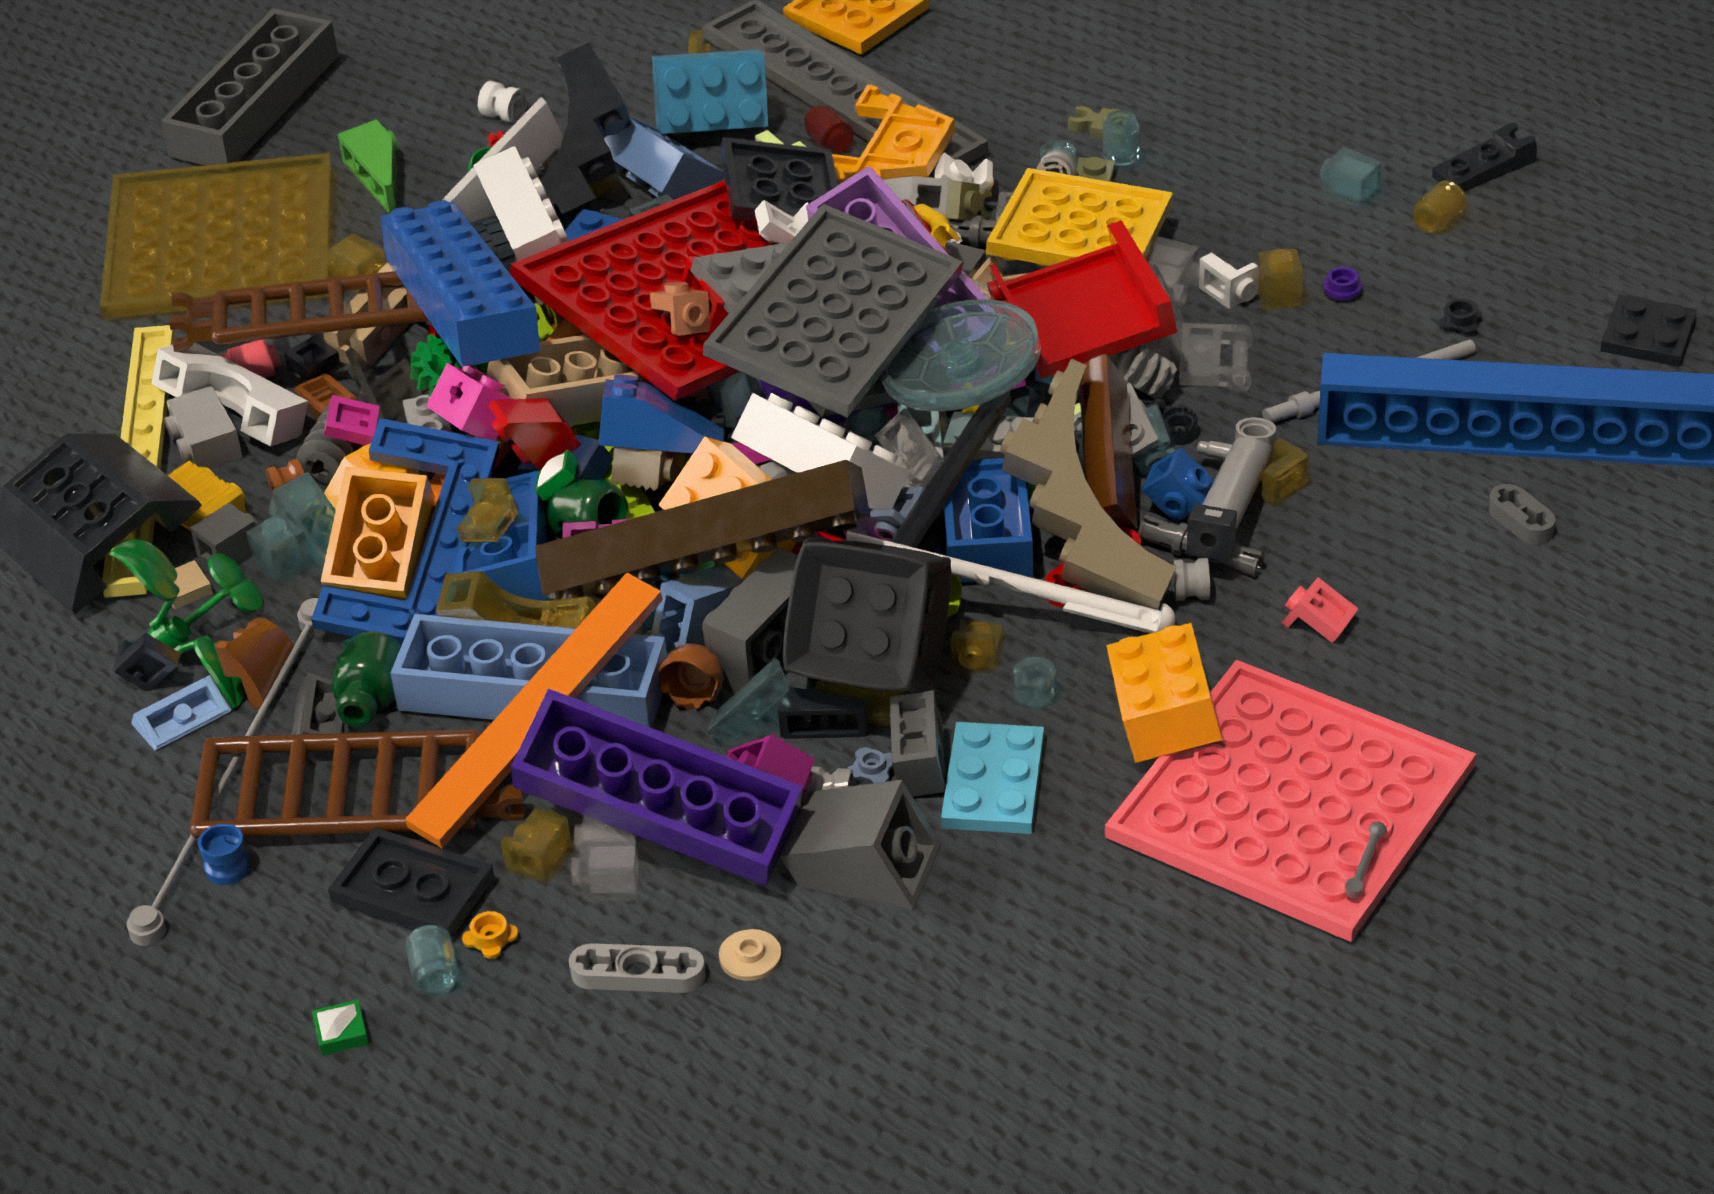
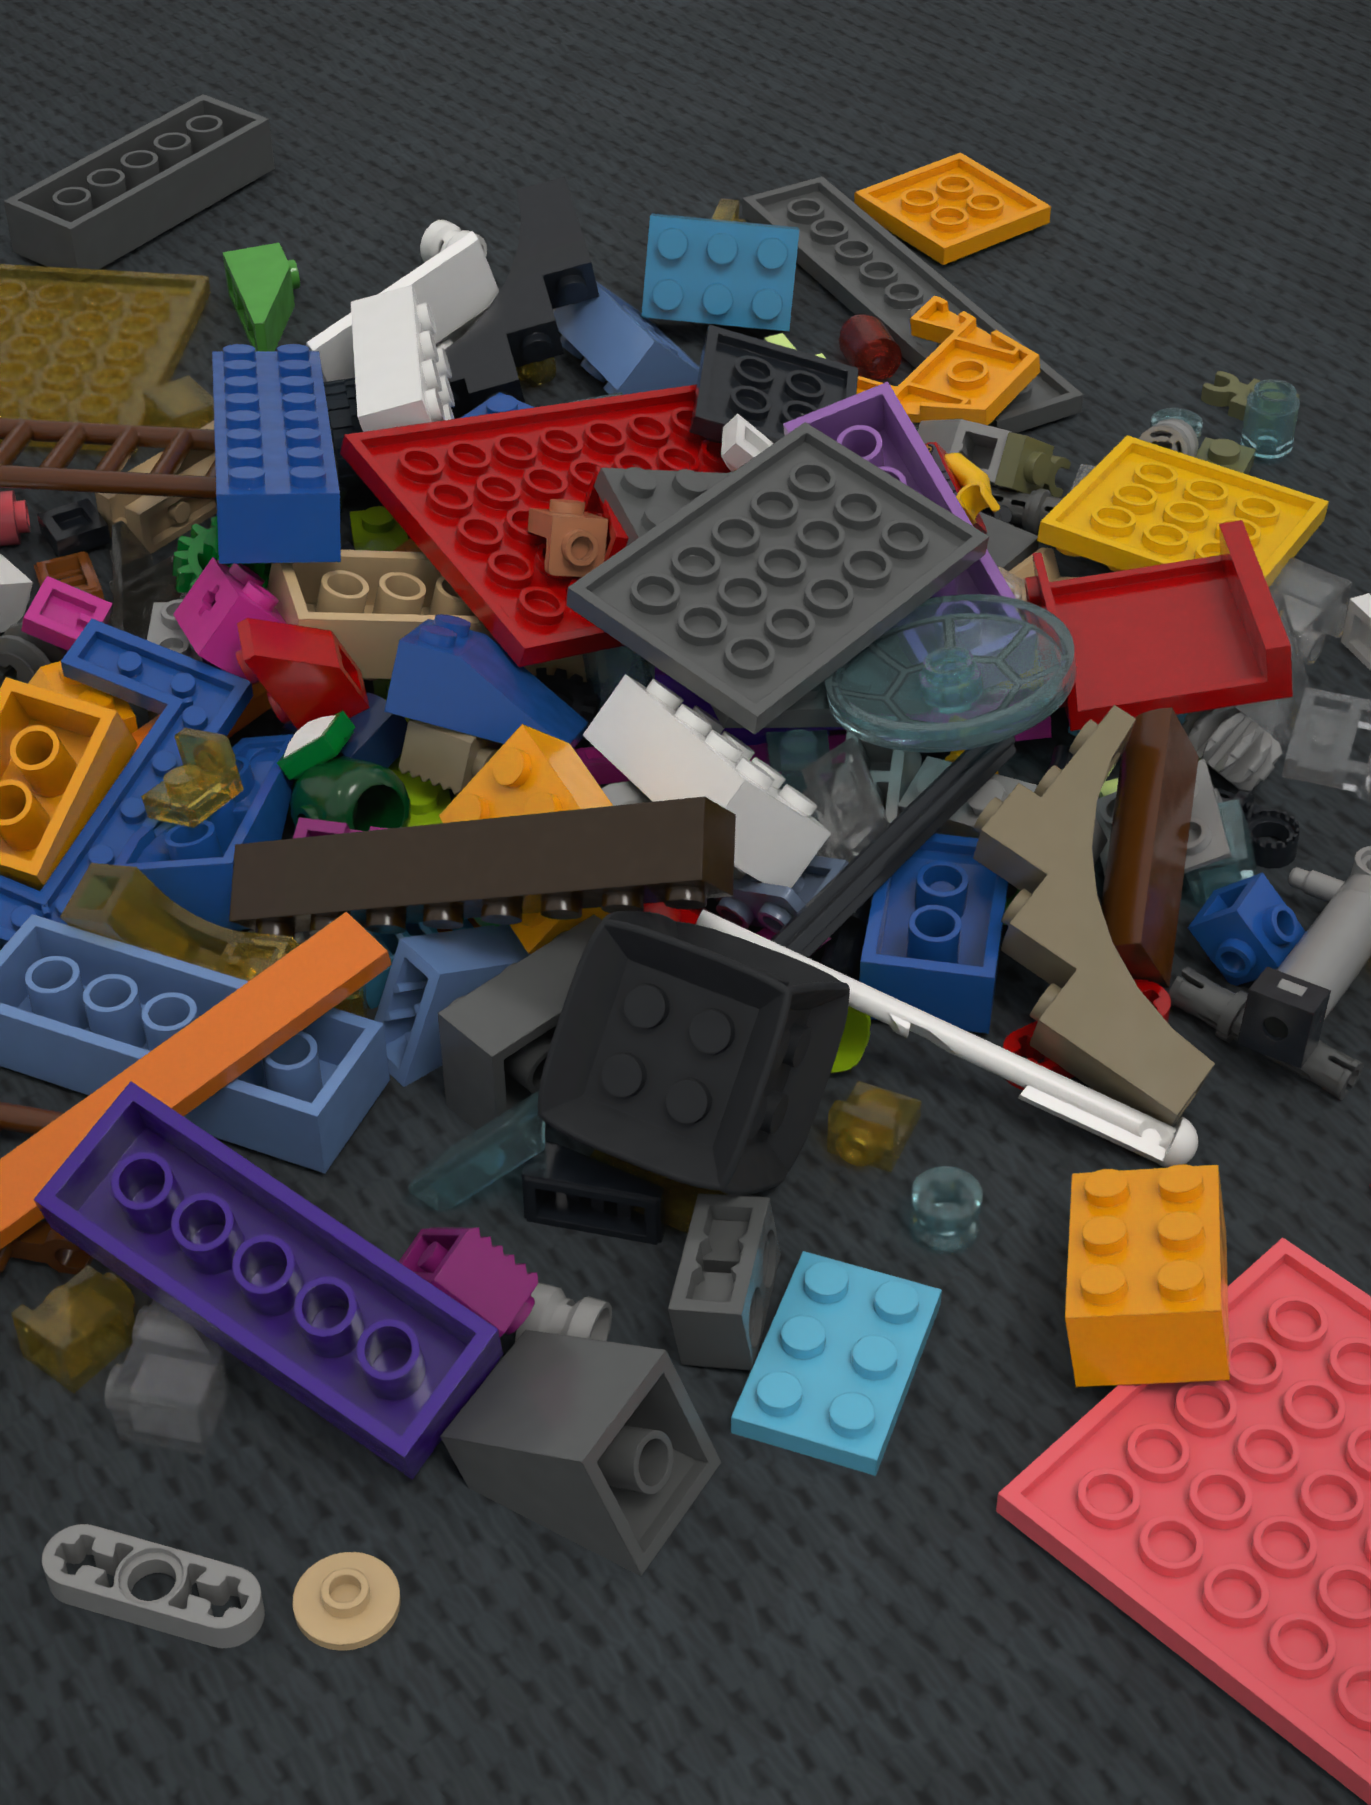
camera: 10 degrees right, 0 degrees up
(691, 676) = (409, 1091): dark orange hair -> none
(871, 766) = (641, 1317): sand blue plate -> none
(959, 171) = (1030, 423): white bracket -> none
(1191, 579) = (1236, 1086): light grey wheel -> none

